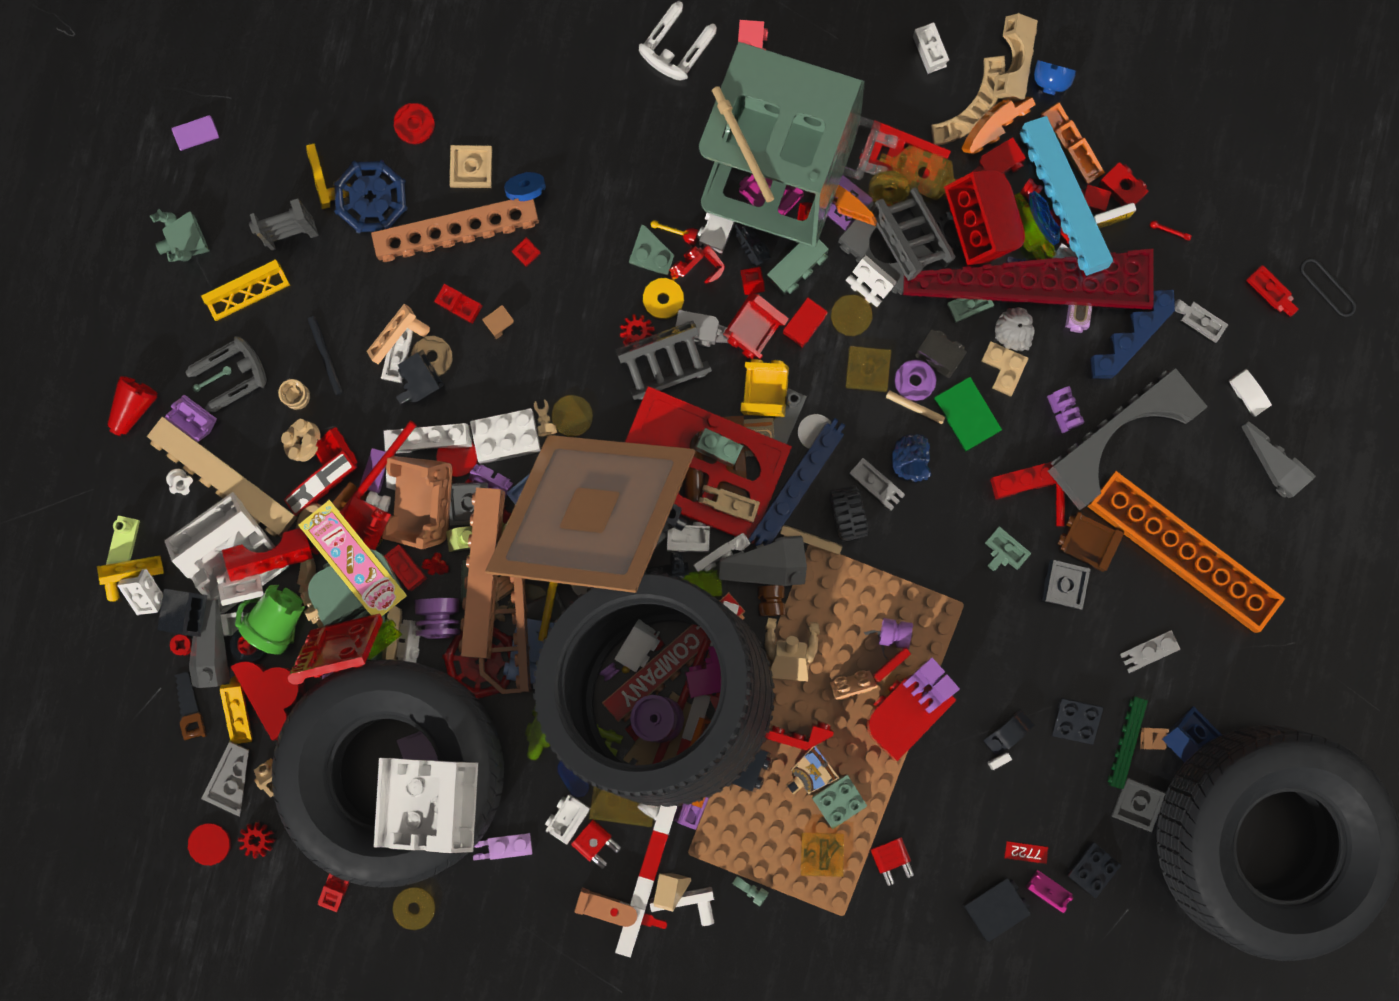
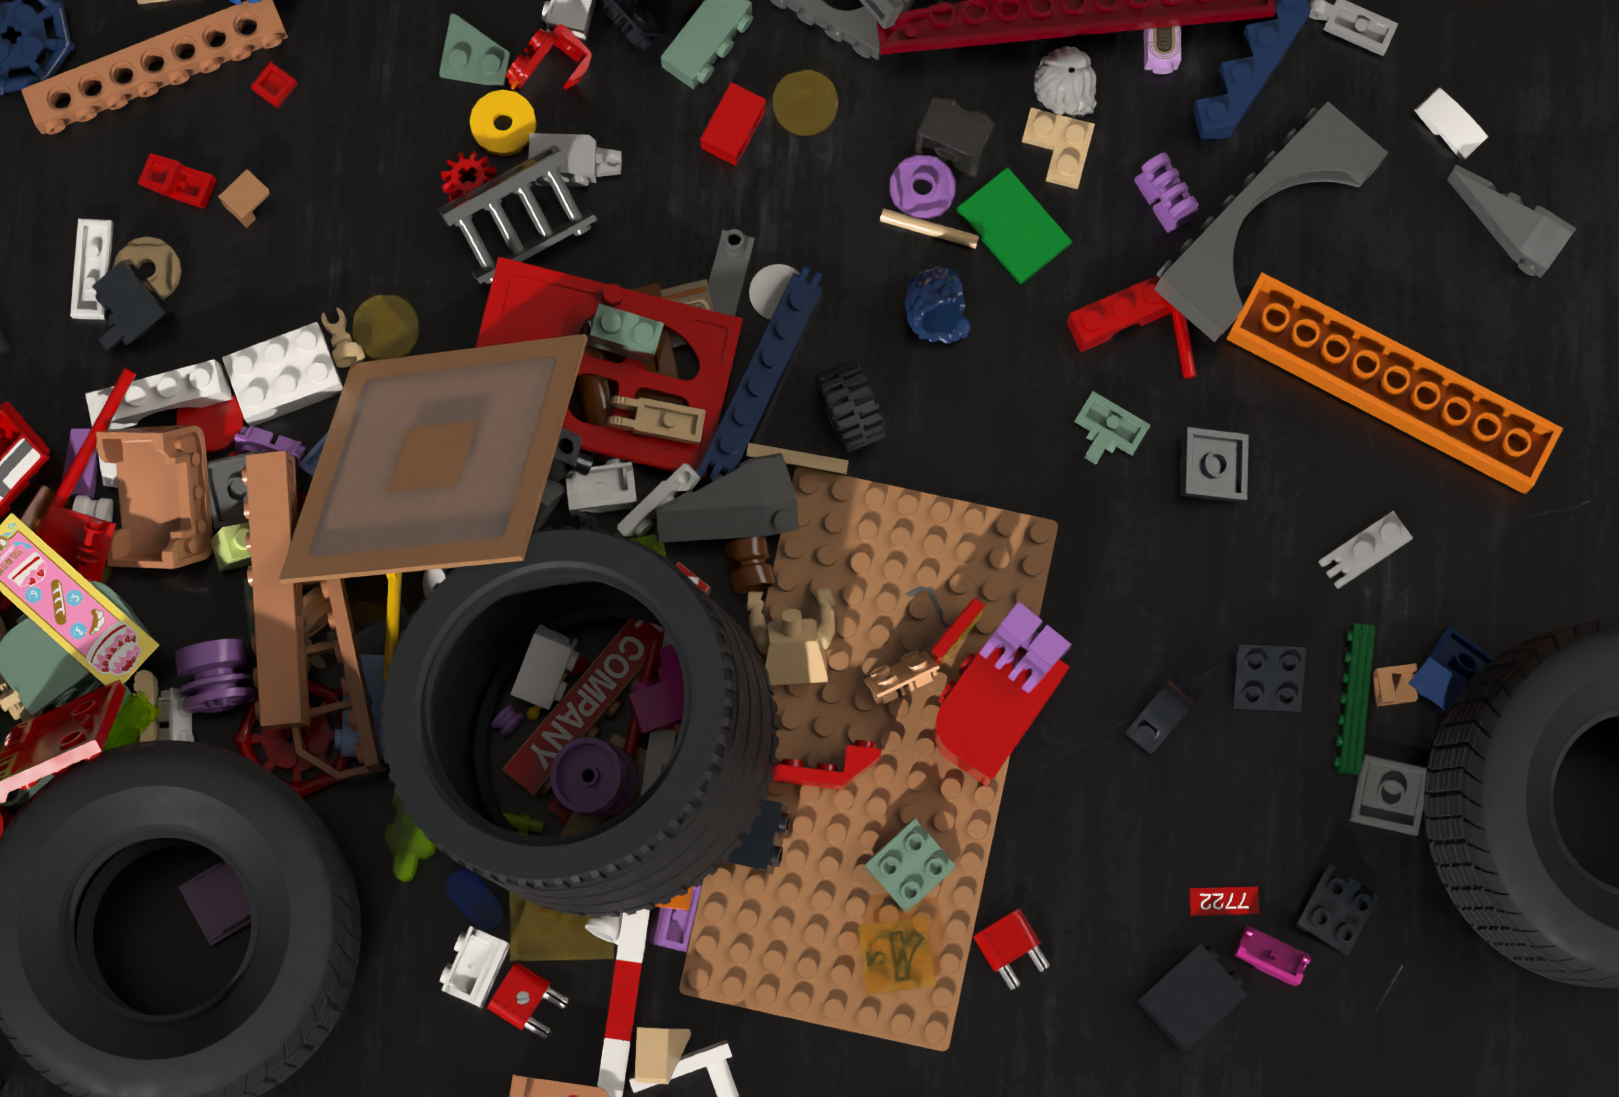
camera: 15 degrees left, 5 degrees down
(400, 322) = (91, 216): light nougat piece -> none
(405, 568) = (152, 607): red panel -> none
(426, 805) = (234, 957): white panel -> none
(435, 564) = (200, 595): red plant -> none
(505, 847) = (380, 1029): lavender hinge -> none
(689, 235) = (529, 17): hinge -> none
(752, 280) = (640, 74): red slope -> none
(752, 891) = (805, 1040): sand green piece -> none
(754, 326) = (653, 140): panel -> none
(765, 388) = (687, 235): yellow panel -> none
(811, 772) = (857, 826): torso -> none
(868, 369) = (845, 181): clear yellow tile -> none
(874, 277) = (832, 36): white plate -> none
(876, 483) = (886, 355): light grey hinge -> none
(895, 633) = (955, 583): medium lavender wheel -> none
(965, 308) = (986, 60): sand green plate -> none
(1000, 760) = (1155, 760): white tile -> none
(1089, 541) = (1240, 393): reddish brown panel -> none

